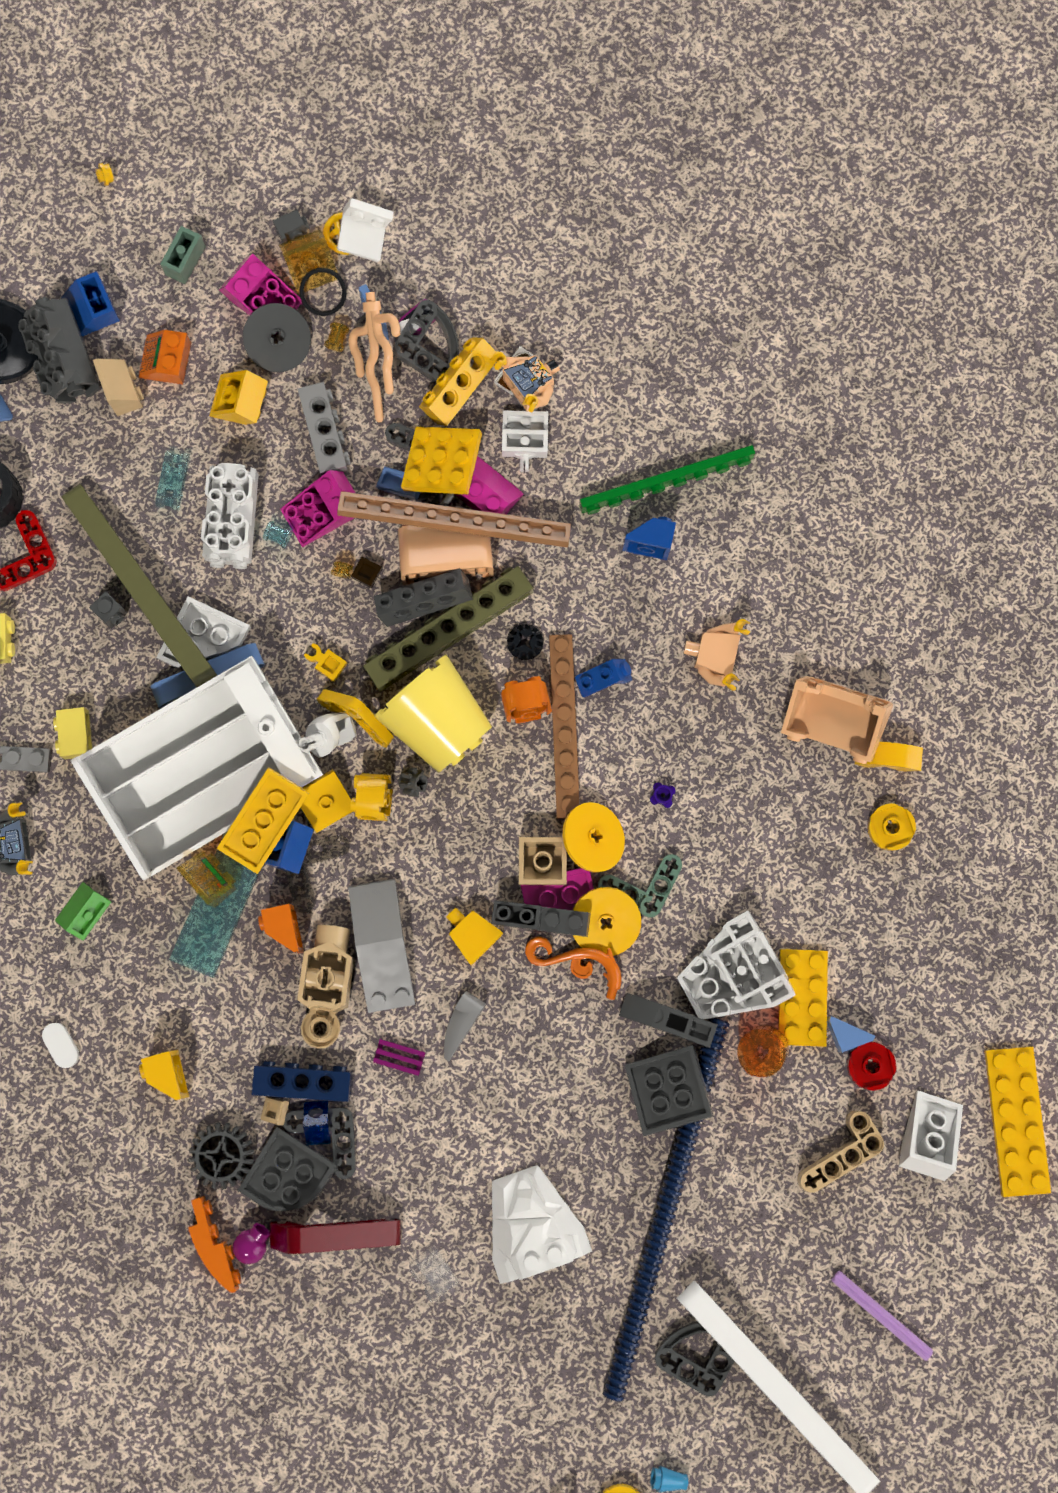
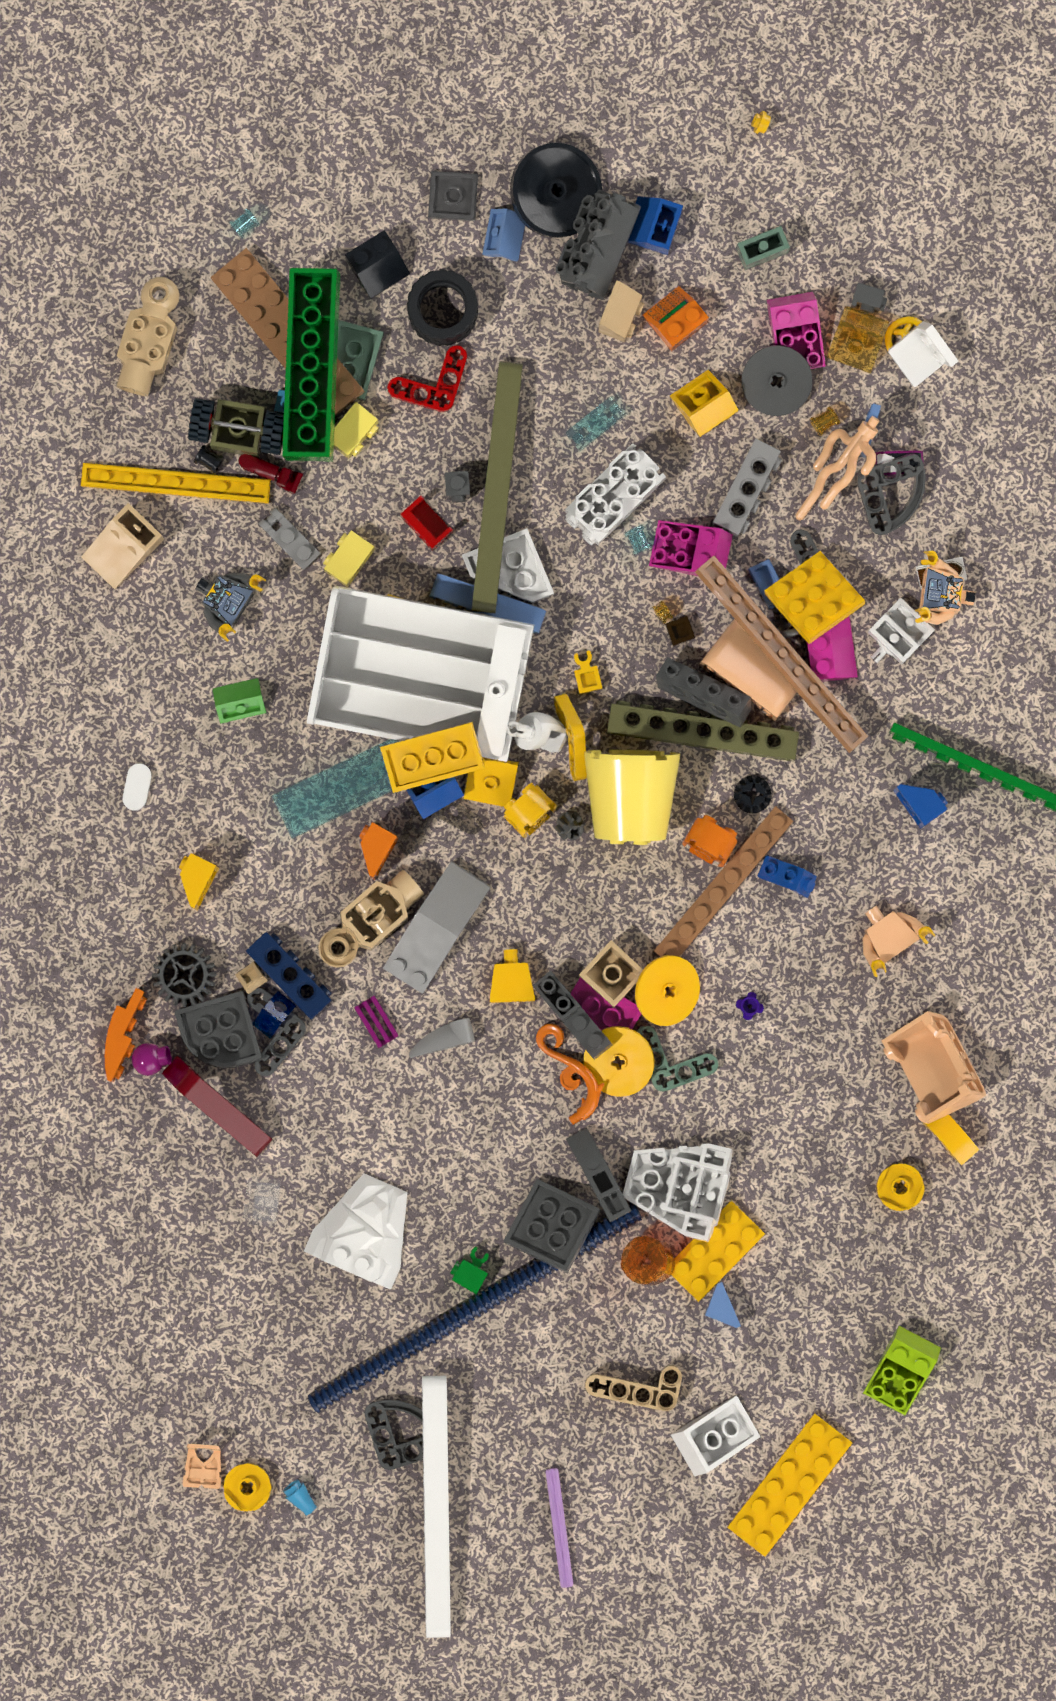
camera: 45 degrees right, 5 degrees up
(109, 658) = (426, 523): none -> red panel
(207, 878) = (353, 762): clear yellow slope -> none
(302, 297) = (843, 352): black tyre -> none
(470, 378) = (880, 553): yellow brick -> none
(640, 1184) = (470, 1274): none -> green brick
(882, 1074) = (722, 1359): red plate -> none
(1018, 958) = (902, 1370): none -> lime slope

